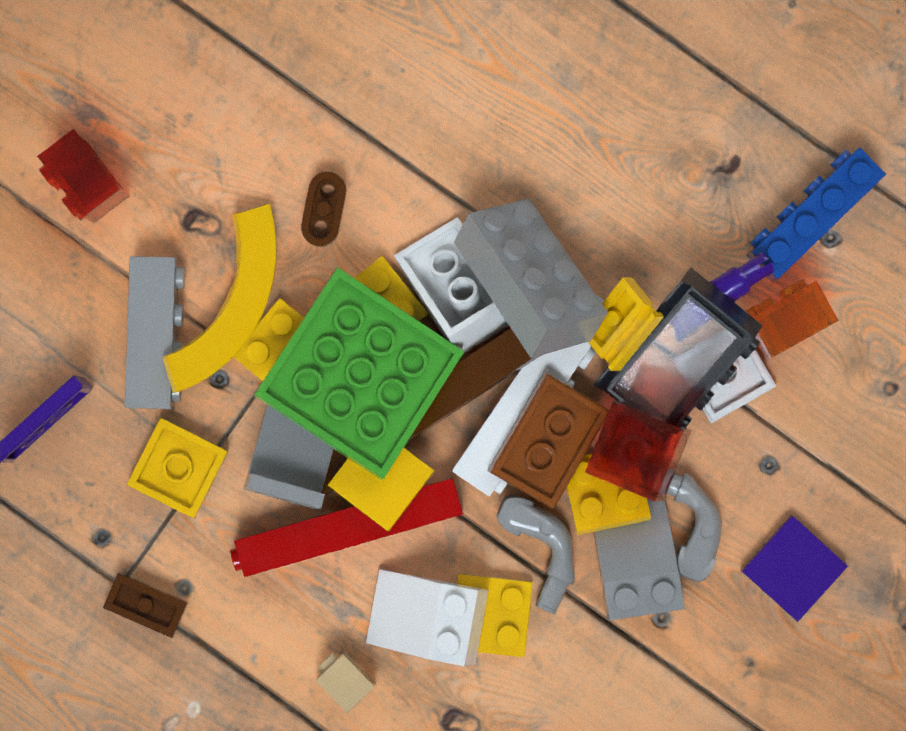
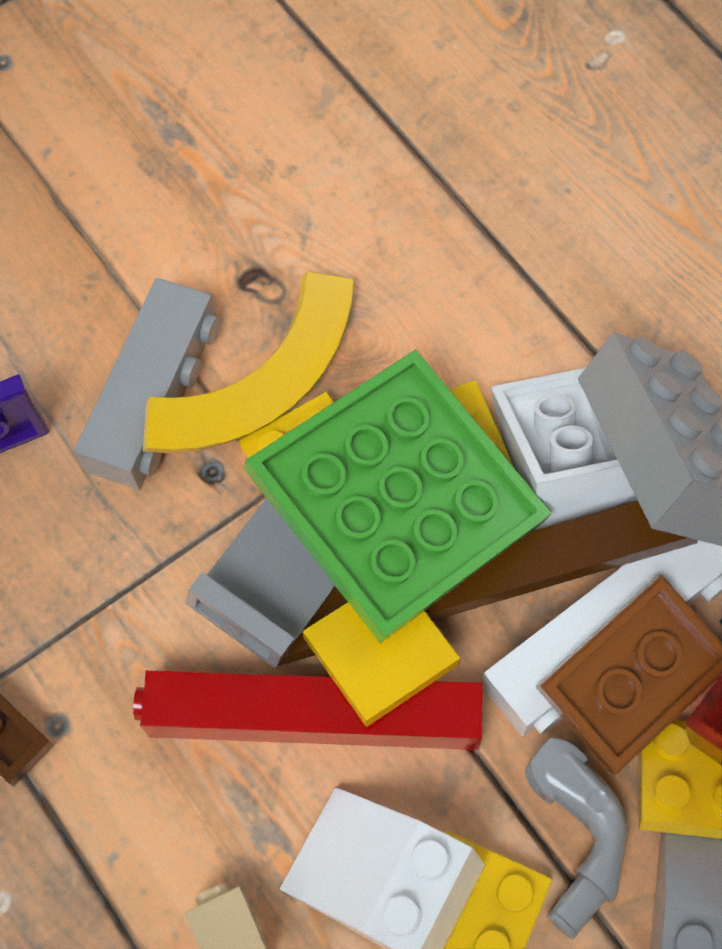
camera: 25 degrees right, 20 degrees down
(83, 177) = (134, 175): clear red brick -> none
(177, 468) = (112, 559): yellow plate -> none
(323, 210) = (417, 309): reddish brown plate -> none

